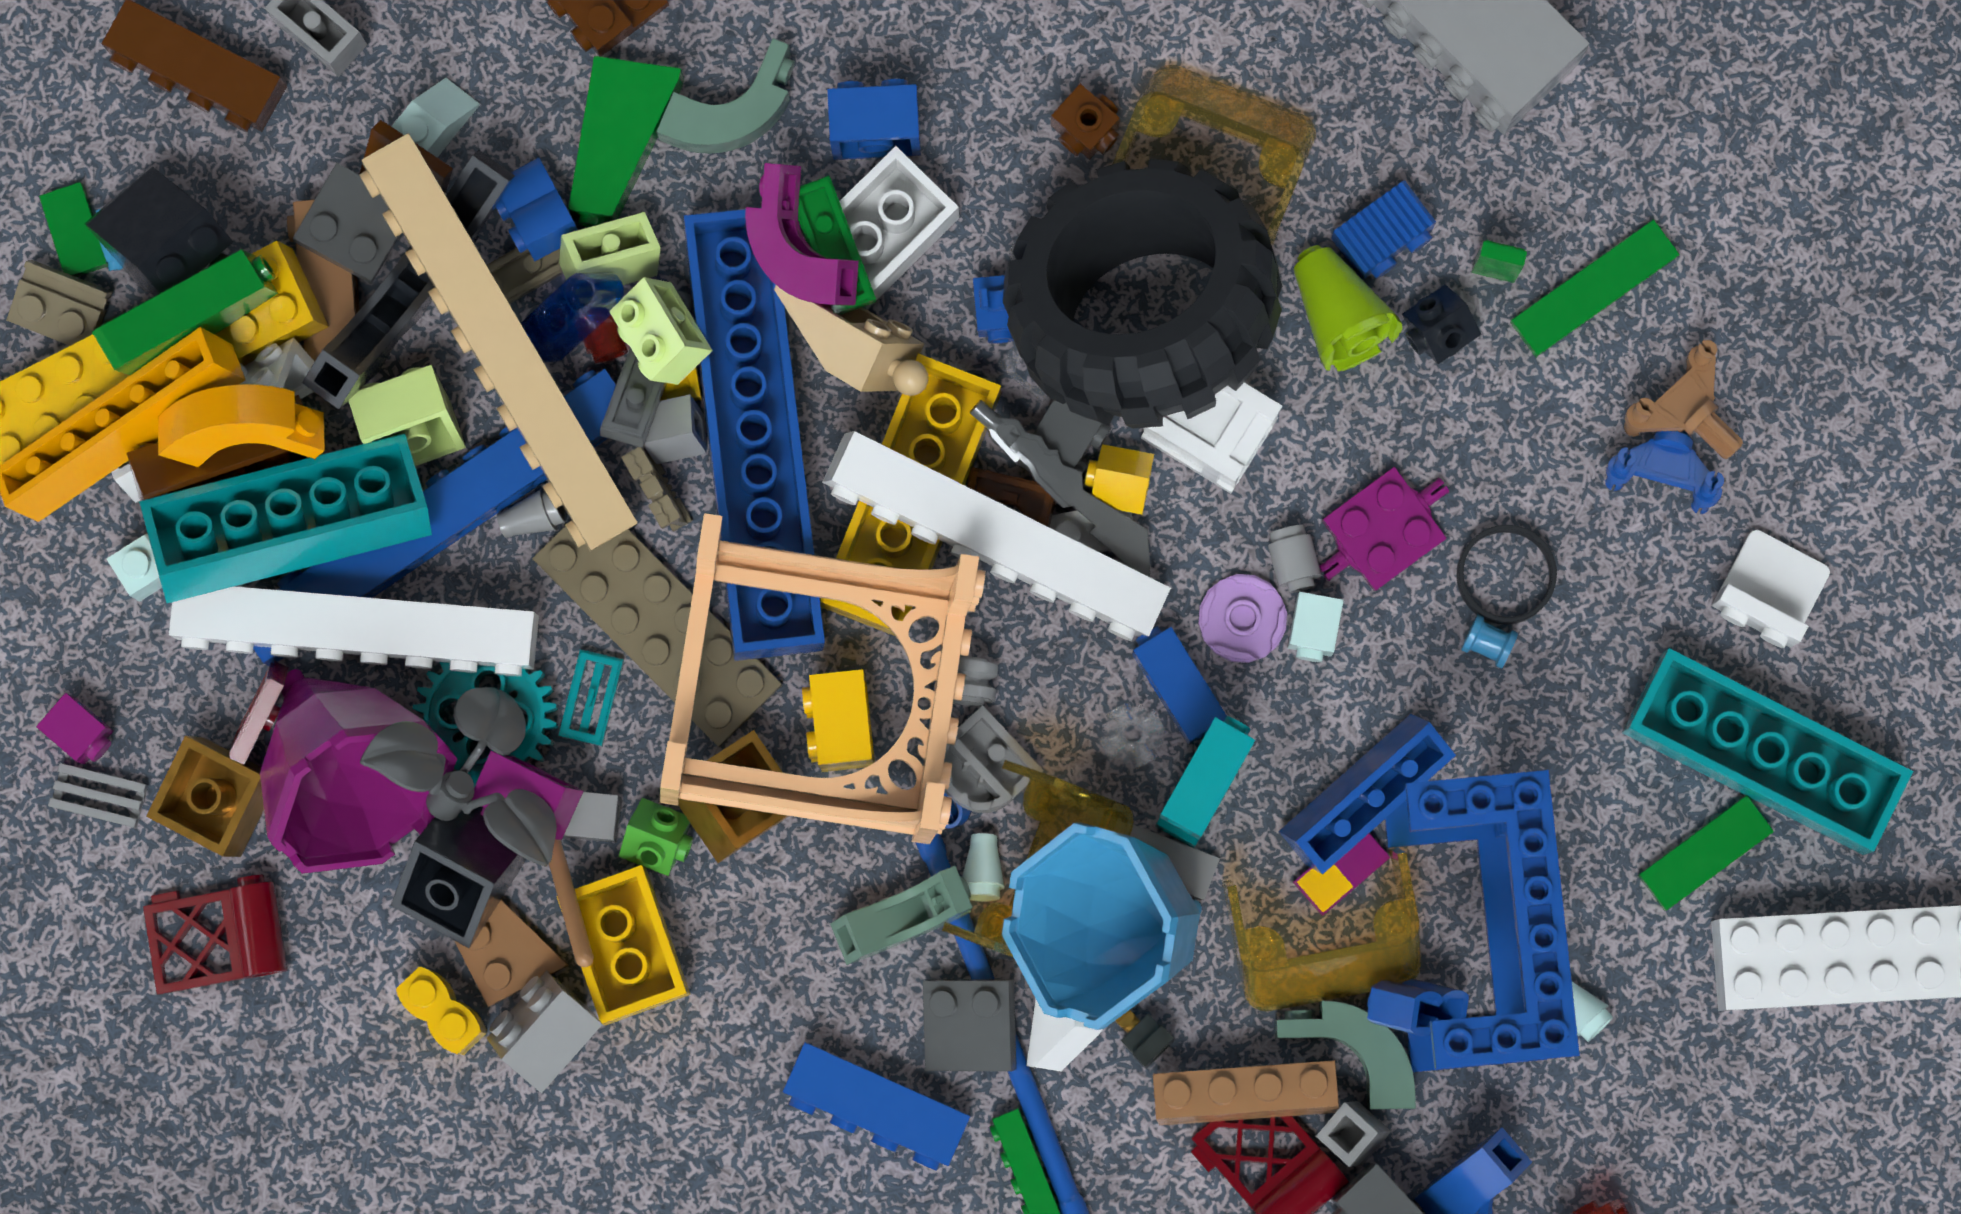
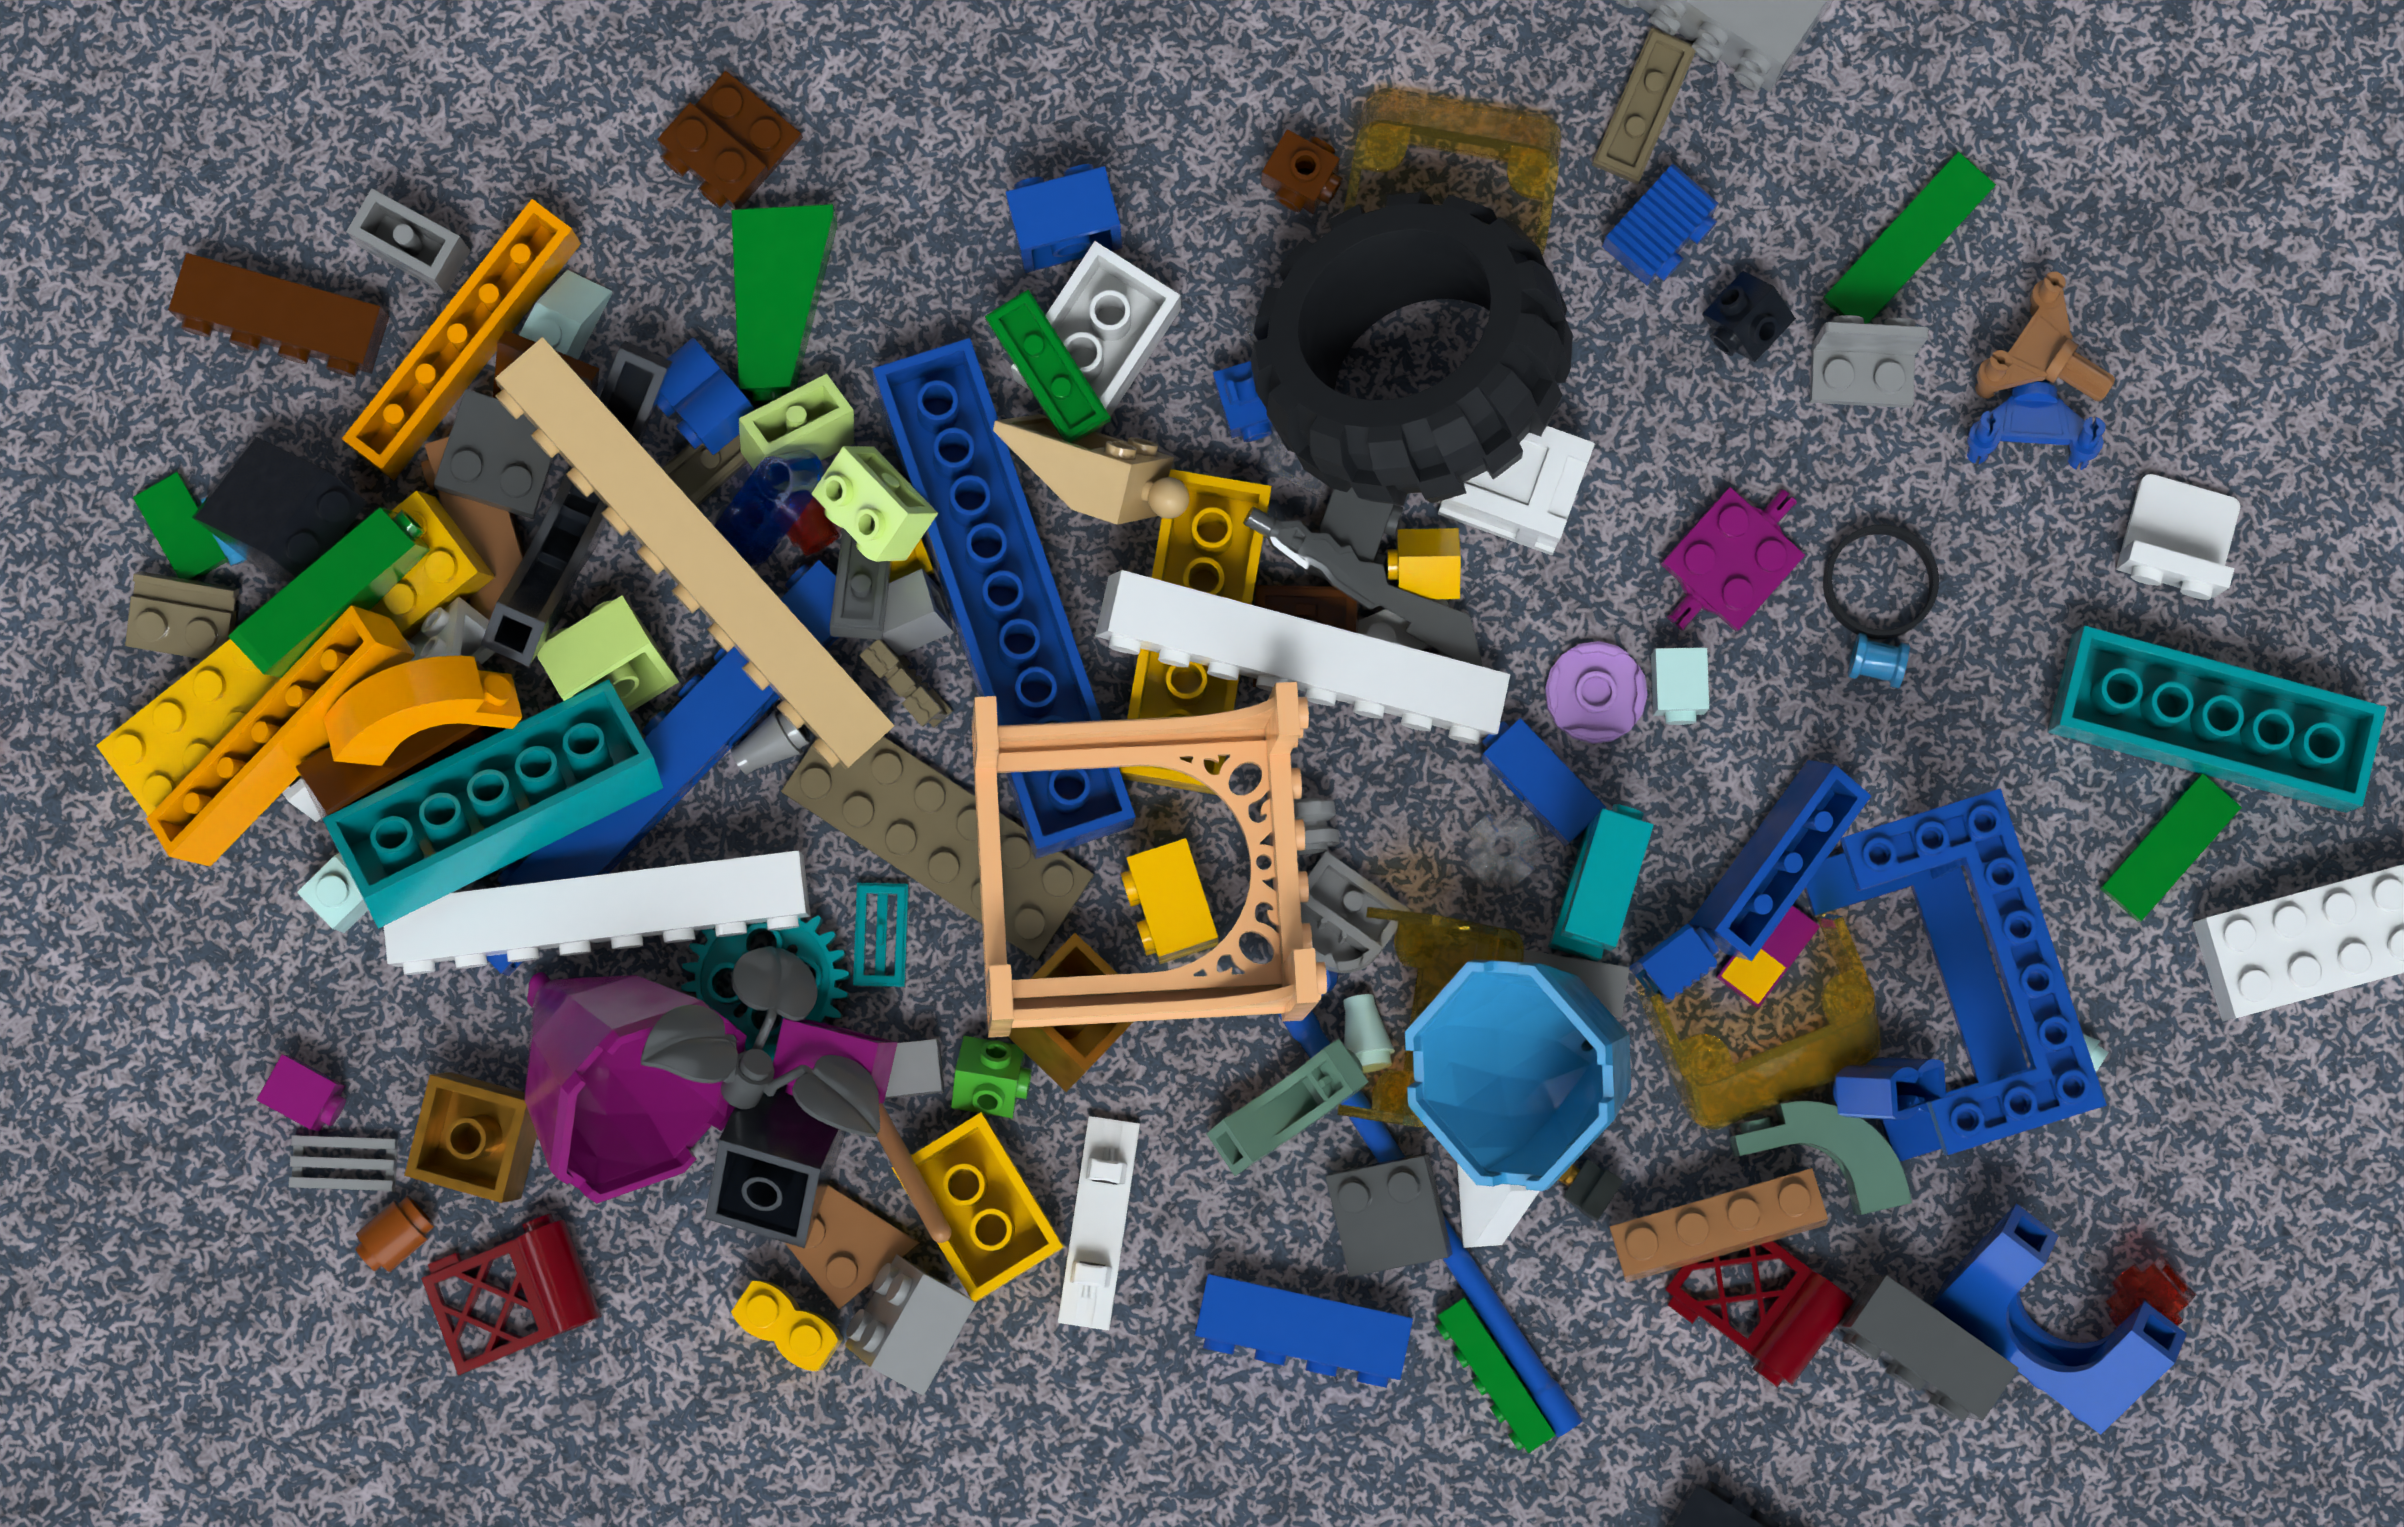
camera: 15 degrees left, 0 degrees up
(127, 864) = (393, 1234): none -> dark orange brick
(260, 713) = (509, 1031): plate -> none
(343, 119) = (462, 339): none -> light orange brick
(723, 980) = (1099, 1223): none -> white hinge
(734, 124) = (899, 259): sand green arch -> none
(783, 250) = (996, 384): magenta arch -> none
(1258, 862) = (1676, 962): none -> blue brick
(1294, 558) = (1639, 613): light grey brick -> none
(1342, 310) = (1634, 323): lime cone -> none
(1353, 1133) = (1848, 1246): light grey brick -> none
(1393, 125) = (1644, 106): none -> dark tan tile
(1499, 261) = (1799, 232): green tile -> none
(1533, 384) = (1865, 362): none -> light grey bracket

